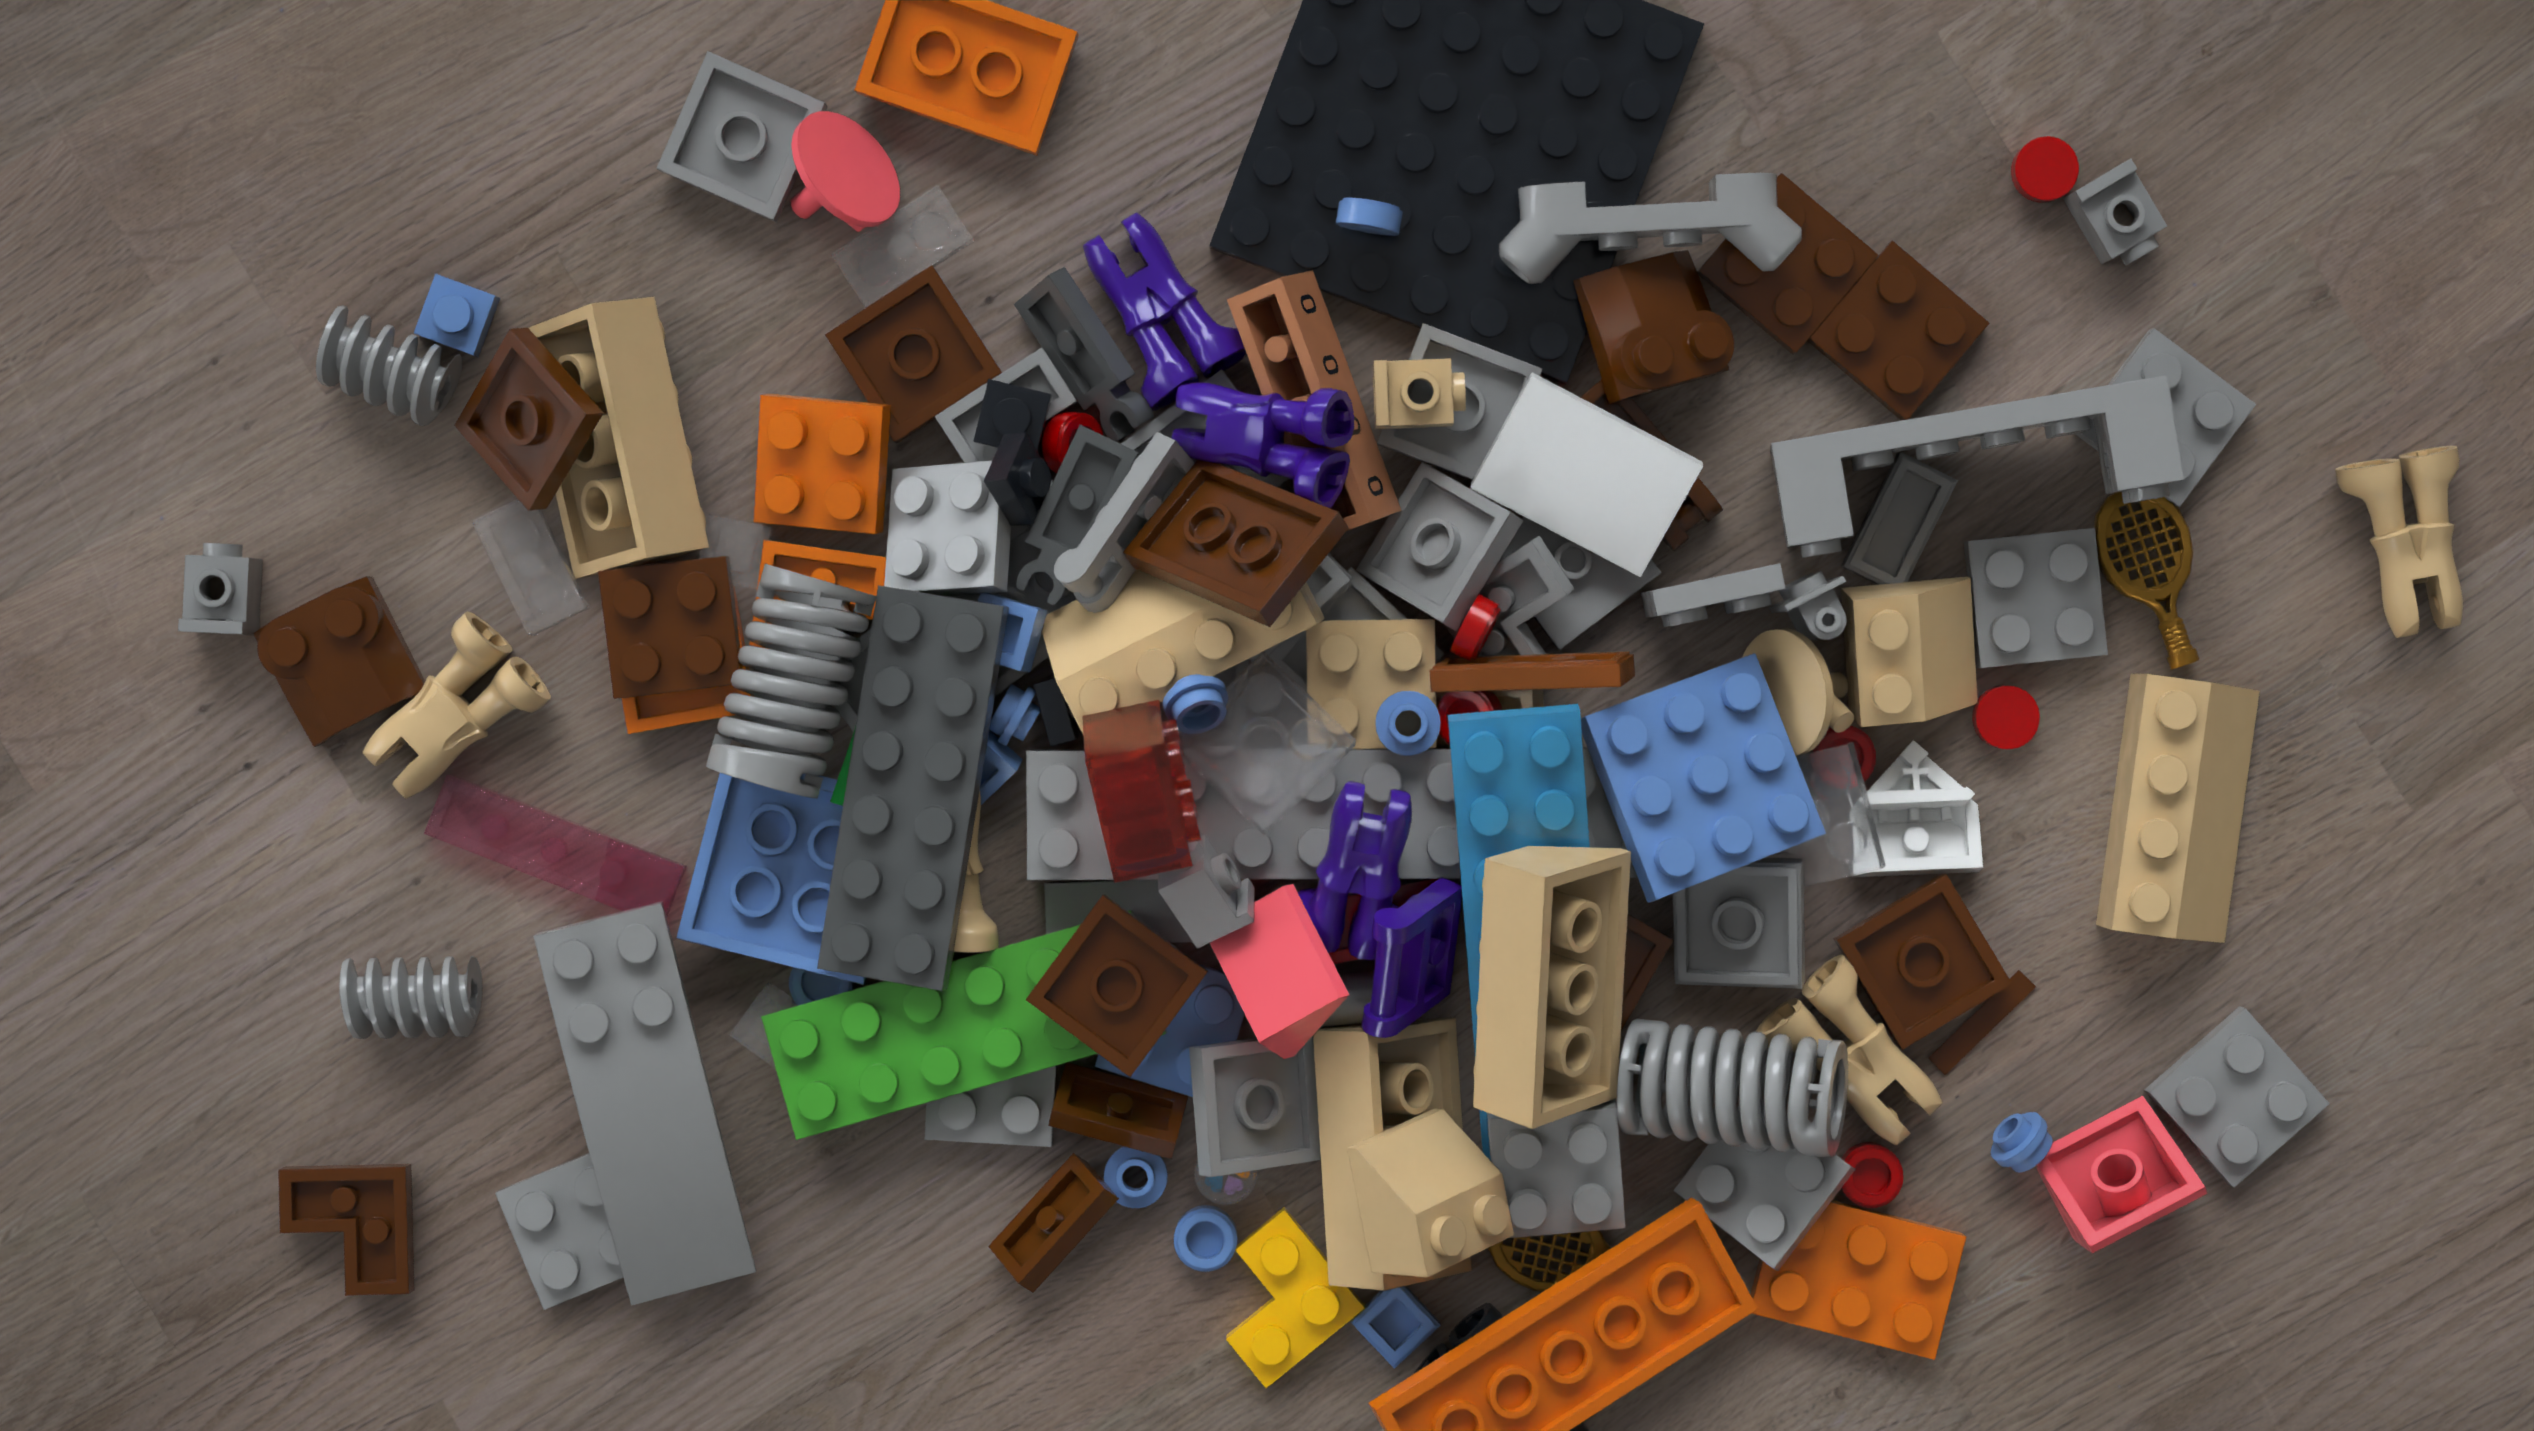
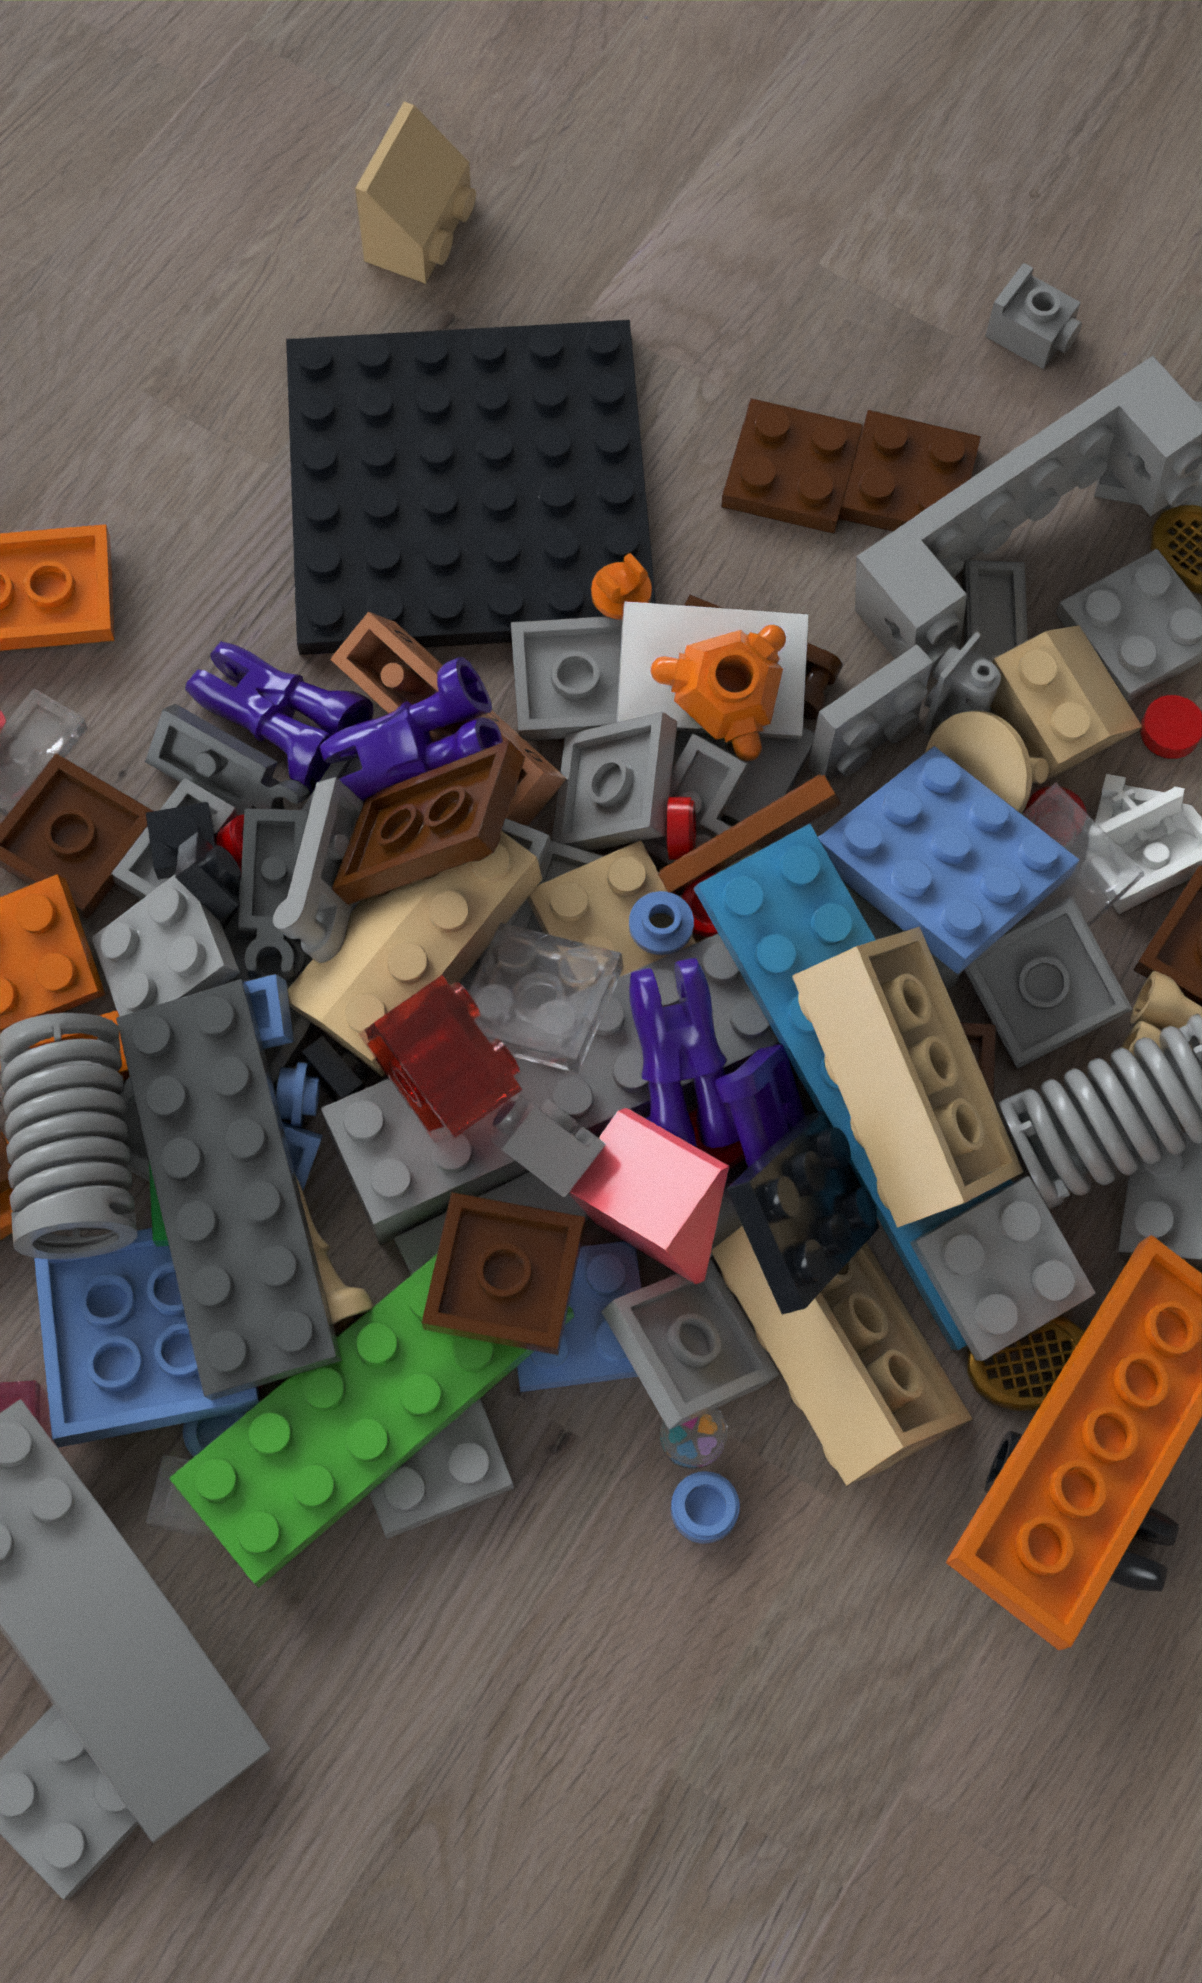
camera: 25 degrees left, 20 degrees down
(1053, 1222) = (549, 1556): reddish brown plate -> none
(1118, 1110) = (562, 1416): reddish brown plate -> none
(1136, 1197) = (604, 1496): medium blue plate -> none
(1196, 703) = (471, 964): medium blue plate -> none
(1302, 1305) = (832, 1524): yellow plate -> none
(1369, 216) = (423, 549): medium blue tile -> none
(1395, 1323) = (927, 1502): medium blue tile -> none
(1396, 410) = (521, 680): tan brick -> none
(1400, 1054) = (804, 1210): none -> black plate
(1427, 1196) = (897, 1339): tan slope -> none
(1542, 345) = (620, 583): none -> orange plate
(1588, 507) = (728, 685): none -> orange rock
(1652, 326) = (708, 545): reddish brown slope -> none
(1738, 208) = (725, 421): light grey plate -> none
(2045, 169) = (959, 316): red tile -> none

